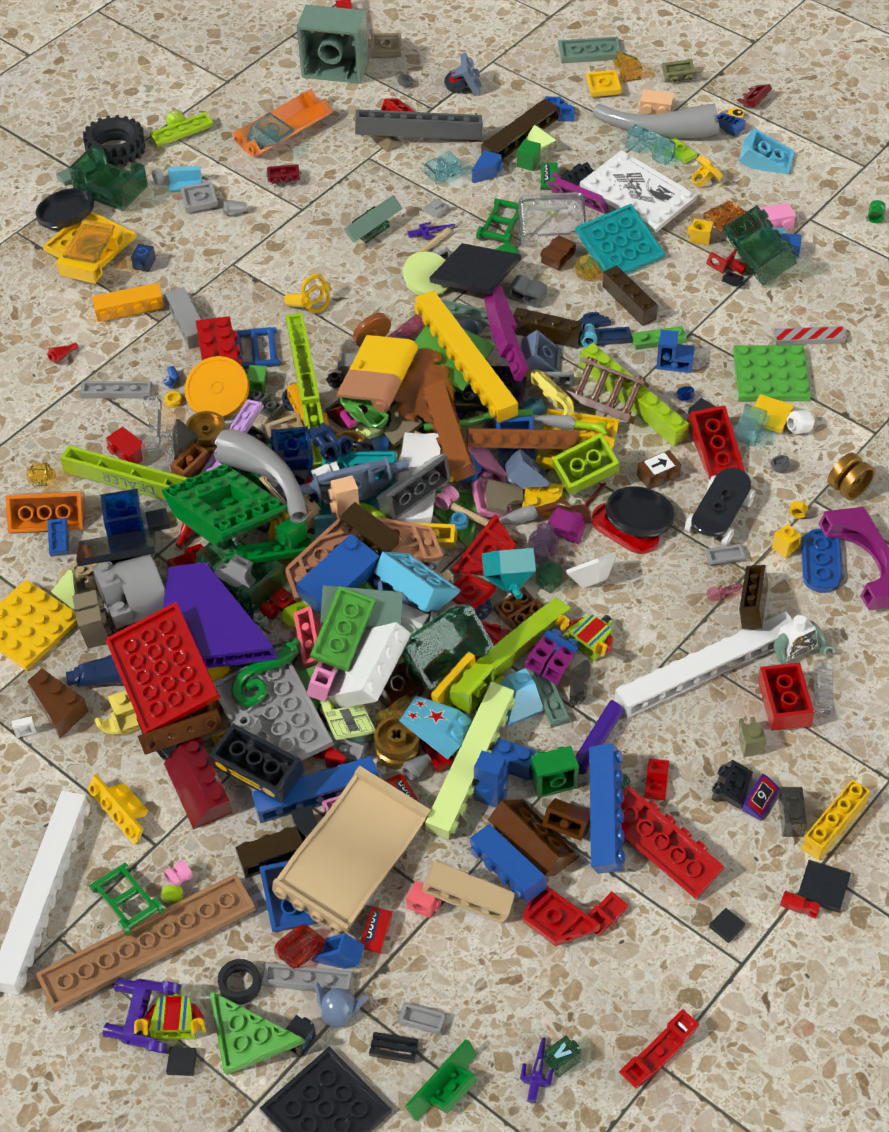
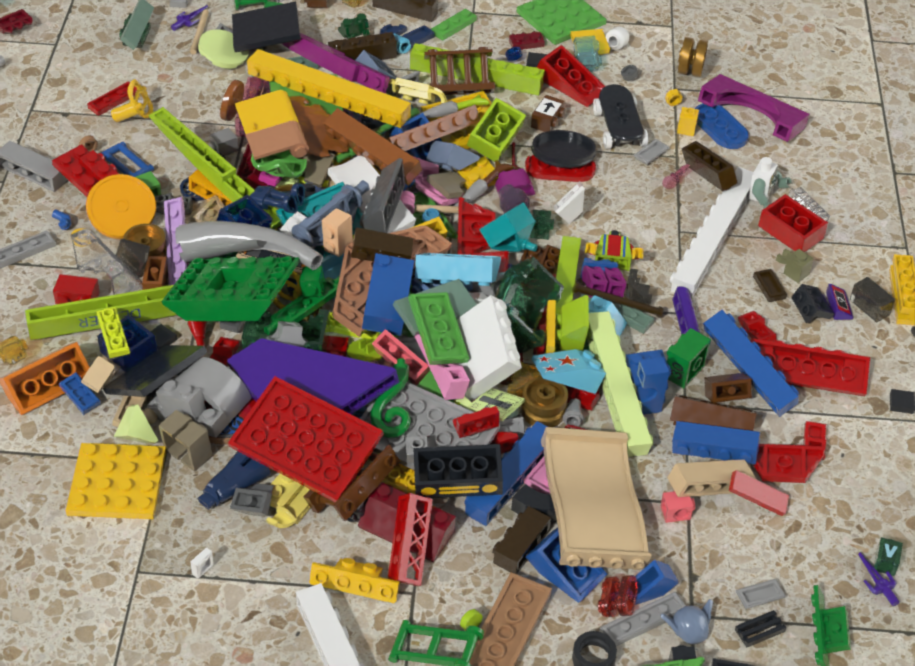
camera: 40 degrees left, 5 degrees down
(57, 701) = (213, 524): reddish brown wedge -> none
(83, 528) = (100, 373): none -> tan slope
(98, 696) = (253, 500): none -> dark grey slope
(111, 498) = (113, 332): none -> neon yellow tile
(171, 795) = (404, 534): none -> red fence
(178, 874) = (462, 600): bright pink wheel -> none
(245, 317) = (89, 143): none -> medium nougat tile
(293, 283) = (110, 99): none -> red tile
(308, 728) = (476, 422): none -> red bracket
(376, 929) = (662, 548): red slope -> none
(498, 930) = (758, 493): none -> tile
(527, 291) = (320, 30): dark grey brick -> none
(547, 684) = (618, 300): none -> dark brown bar
(561, 301) = (354, 27): none -> dark green piece
(673, 355) = (480, 28): blue brick -> none
(711, 744) = (769, 285): none -> dark brown tile
(712, 384) = (526, 40): none -> dark red plate

